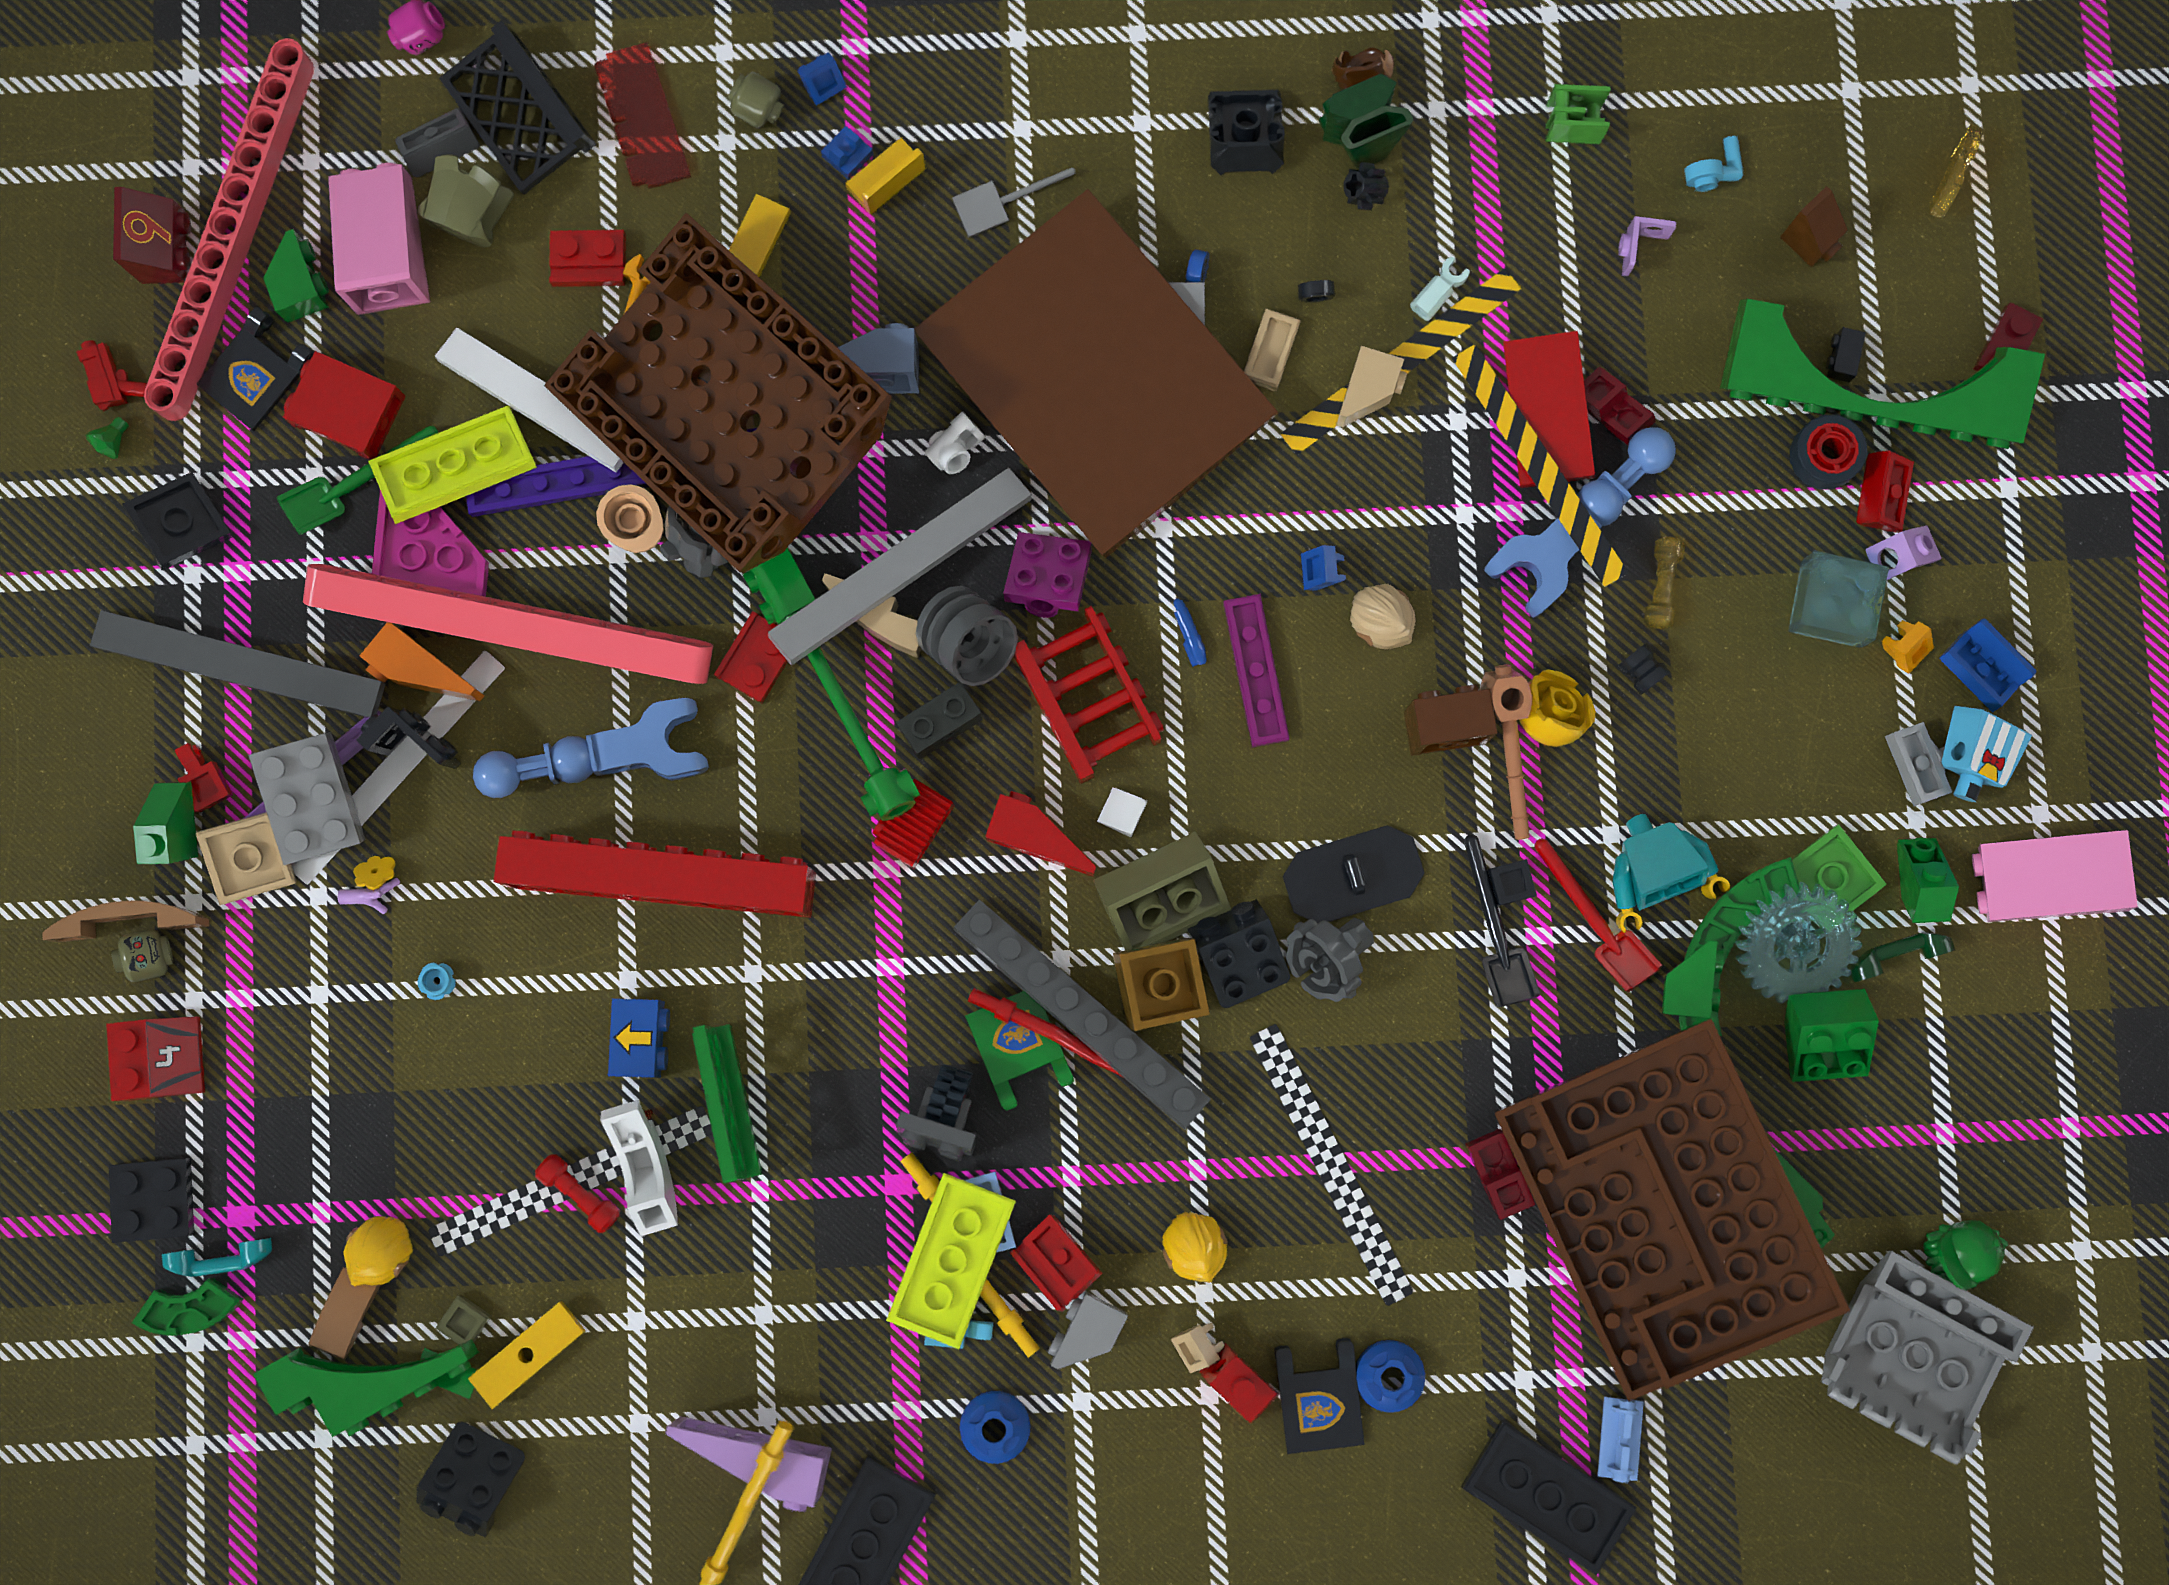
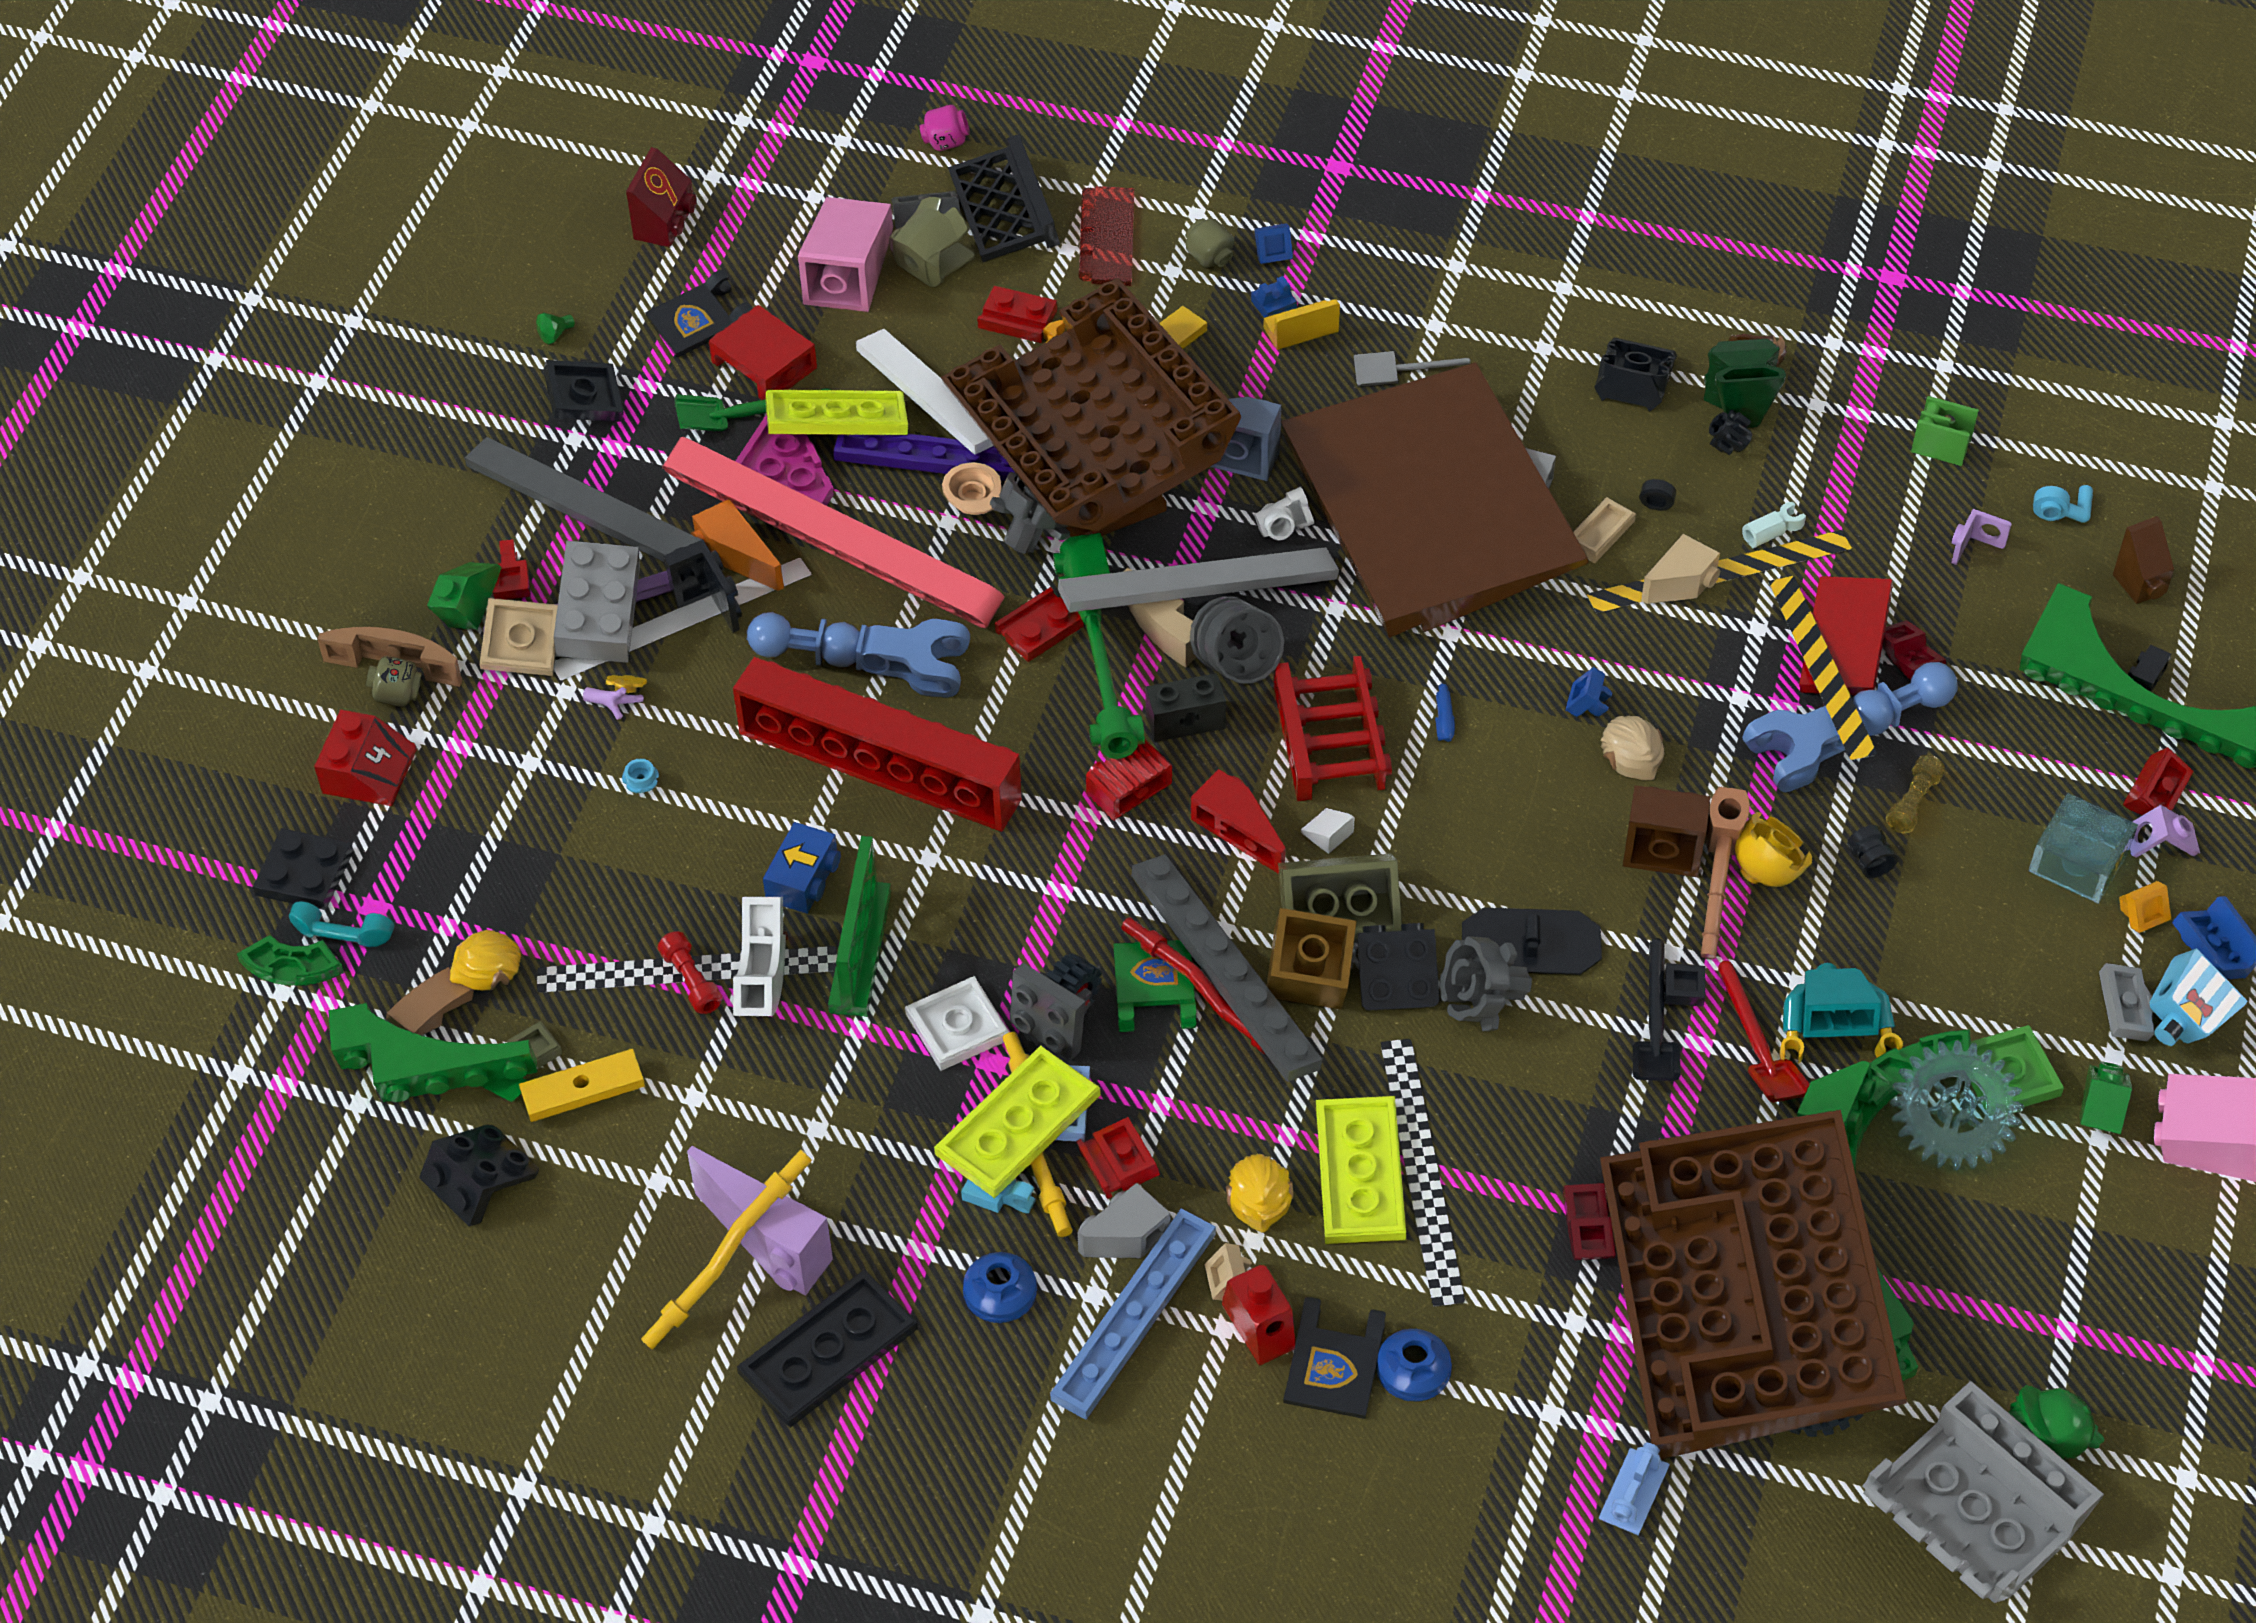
camera: 20 degrees right, 30 degrees down
(105, 383) = (572, 292): red piece -> none
(233, 246) = (723, 219): coral beam -> none
(293, 281) = (762, 263): green slope -> none
(851, 1156) = (957, 1023): none -> white tile
(1047, 573) = (1333, 623): magenta plate -> none
(1126, 1418) = (1133, 1314): none -> medium blue plate
(1197, 266) = (1556, 446): blue tile -> none
(1256, 671) = (1496, 759): magenta tile -> none
(1277, 1188) = (1360, 1170): none -> neon yellow tile
(1548, 1497) = (1541, 1523): black tile -> none
(1830, 1034) = (1966, 1200): green slope -> none
(1842, 437) = (2107, 734): wheel -> none
(1930, 943) = (2099, 1154): dark green bar -> none

